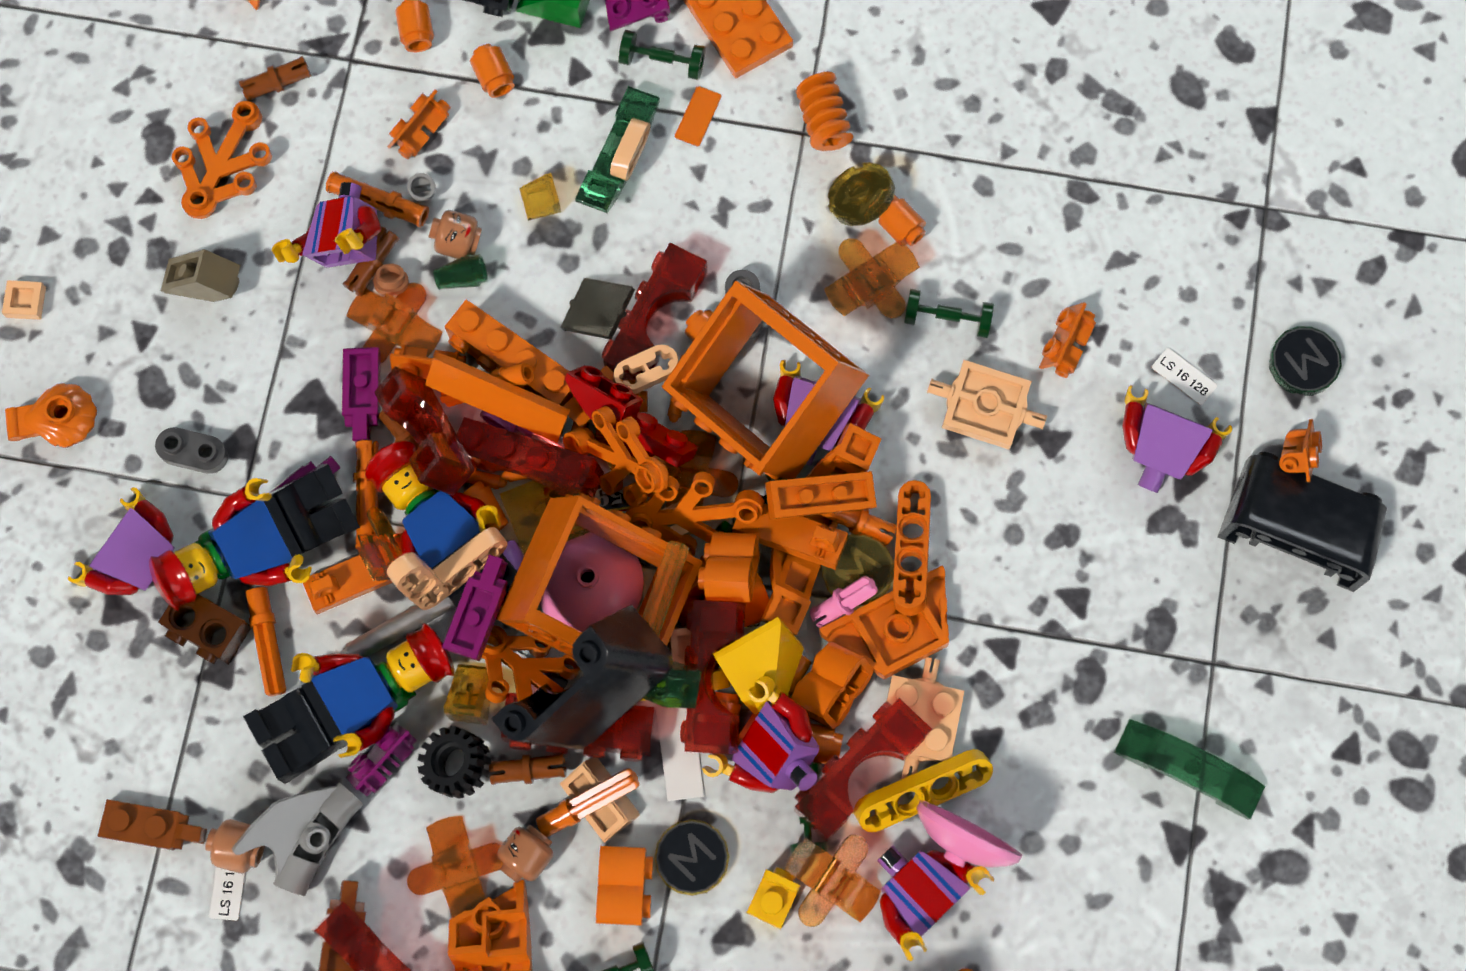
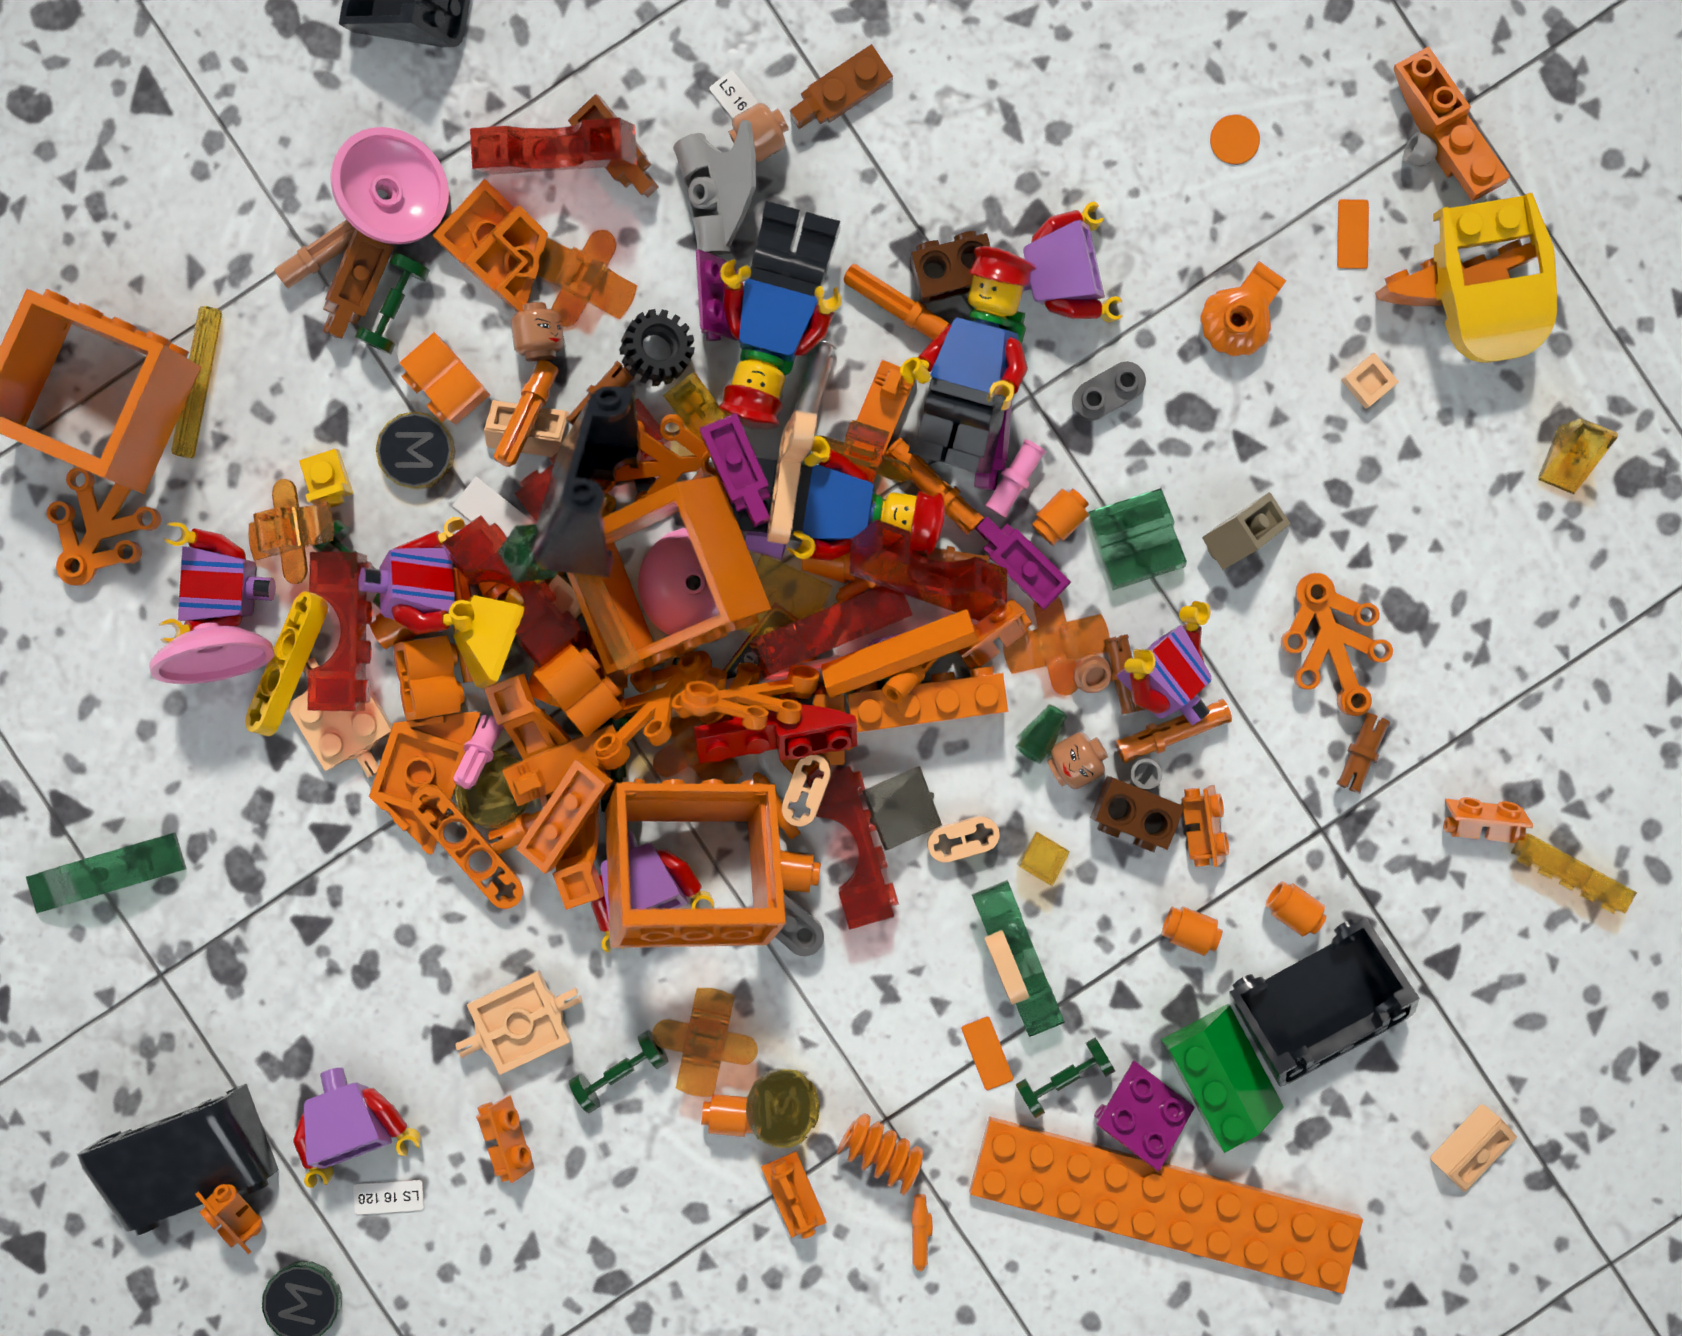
camera: 135 degrees right, 15 degrees up
(274, 339) = (1137, 539): none -> clear green slope
(306, 397) = (1061, 516): none -> orange brick
(309, 449) = (1015, 478): none -> bright pink pin
(448, 171) = (1139, 806): none -> reddish brown brick
(582, 249) = (965, 848): none -> light nougat beam
(844, 49) = (921, 1230): none -> orange piece
(908, 138) = (794, 1195): none -> orange hinge

